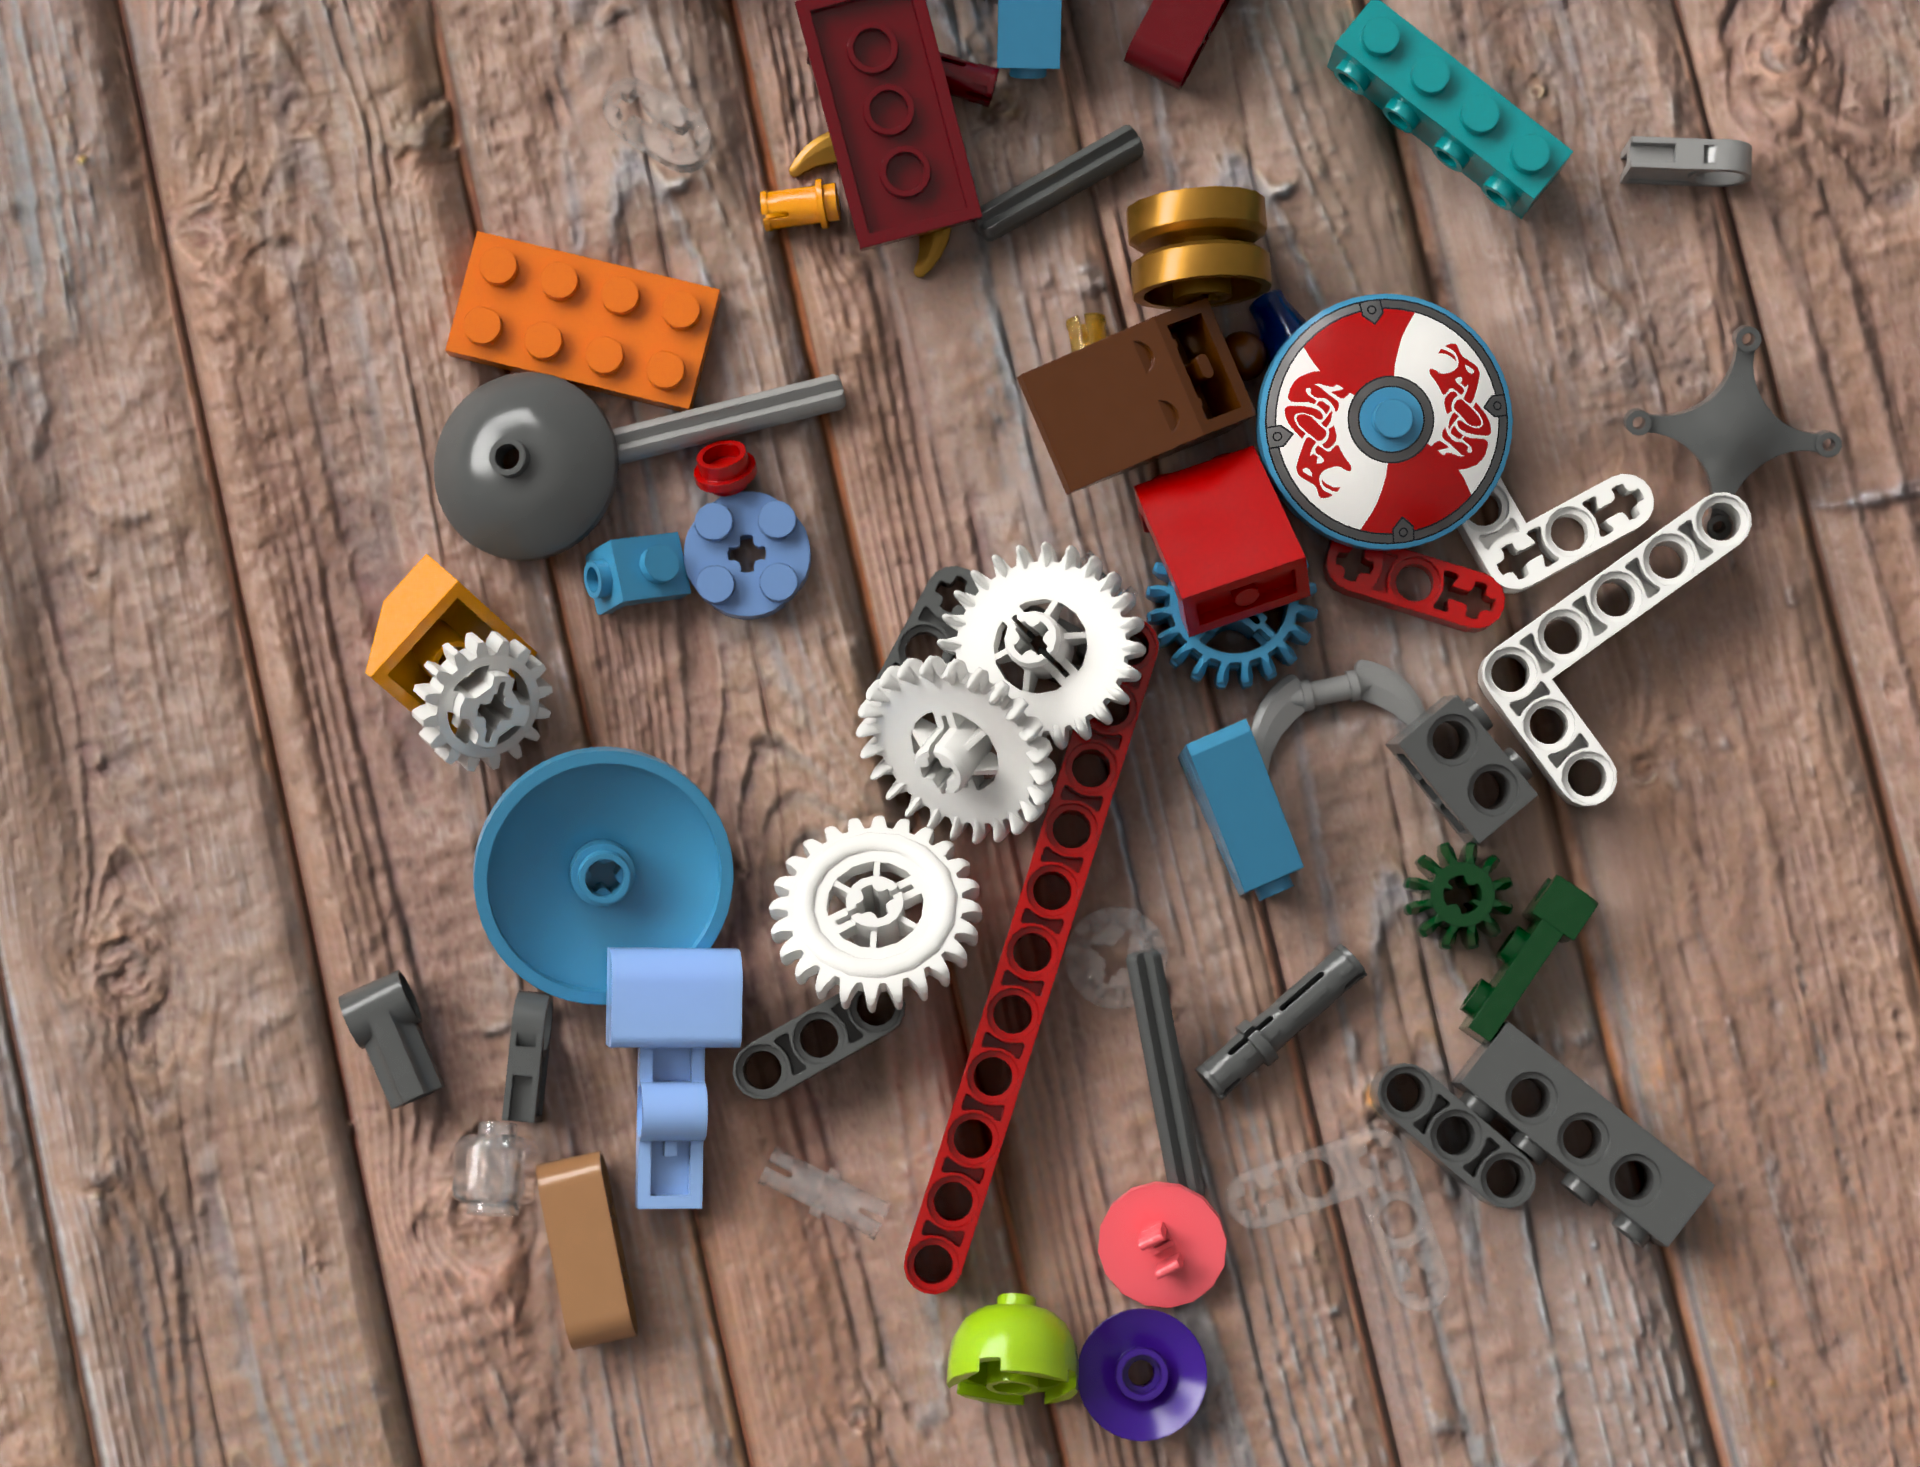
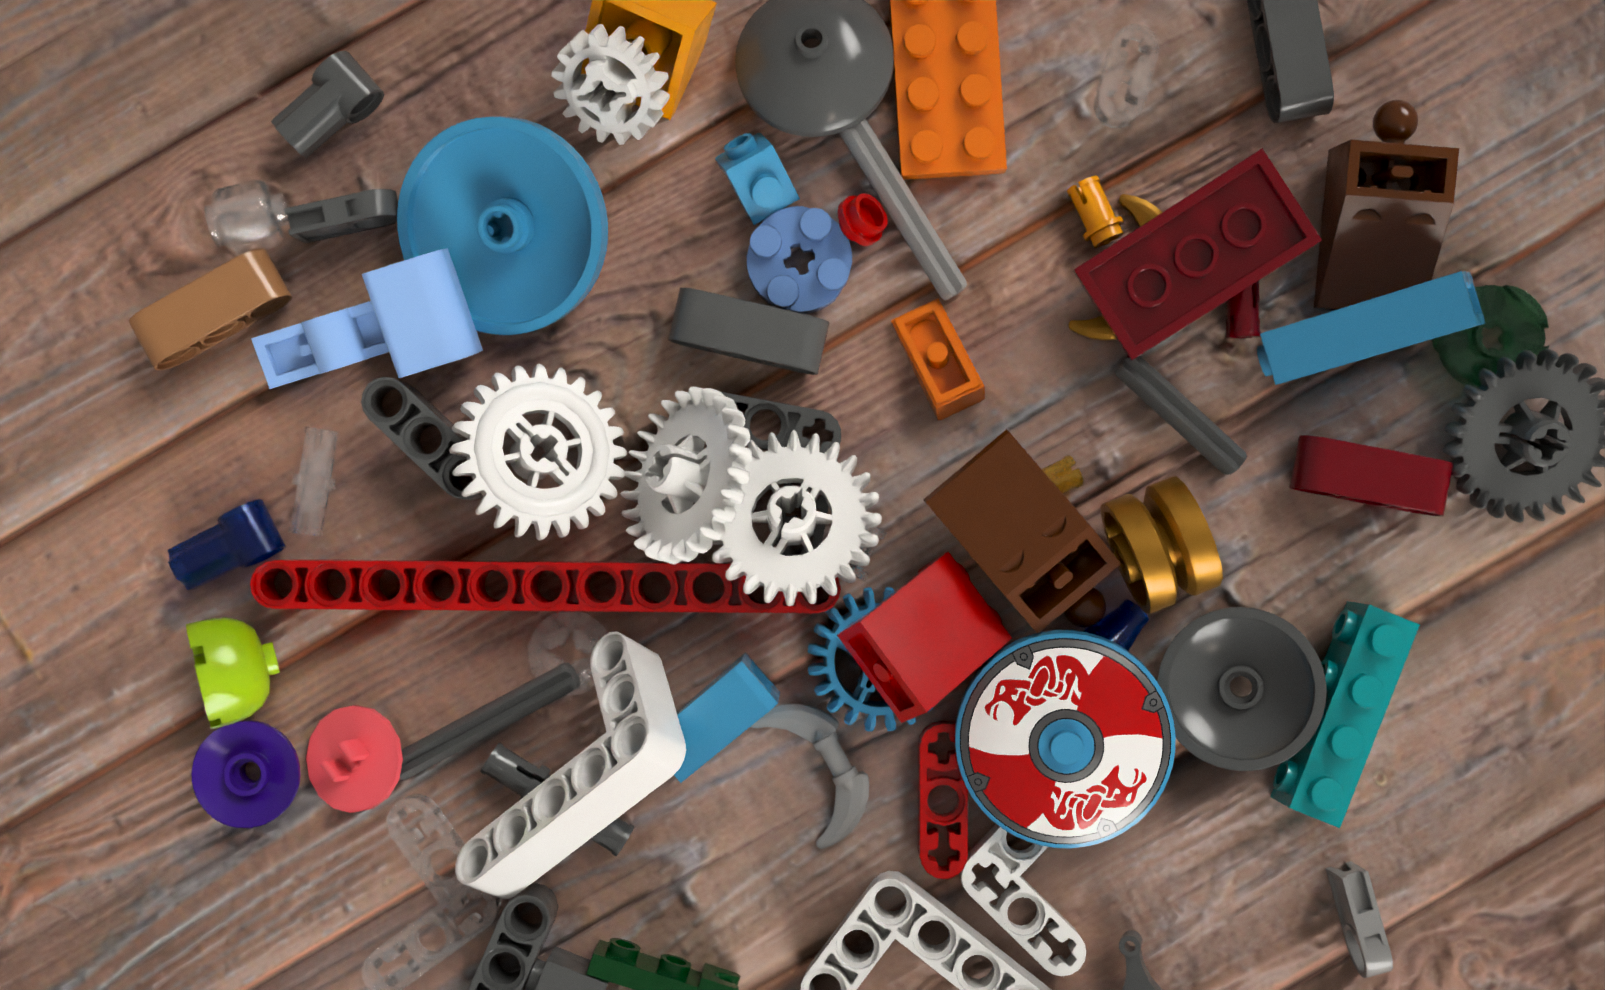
camera: 75 degrees right, 5 degrees up
(811, 636) = (748, 331): none -> dark grey beam
(866, 1299) = (240, 539): none -> clear blue piece
(911, 433) = (939, 359): none -> orange slope
(1281, 967) = (596, 786): none -> white beam
(1396, 162) = (1253, 728): none -> dark grey dish
(1449, 916) = (698, 931): dark green gear -> none
(1451, 780) = (794, 880): dark grey brick -> none

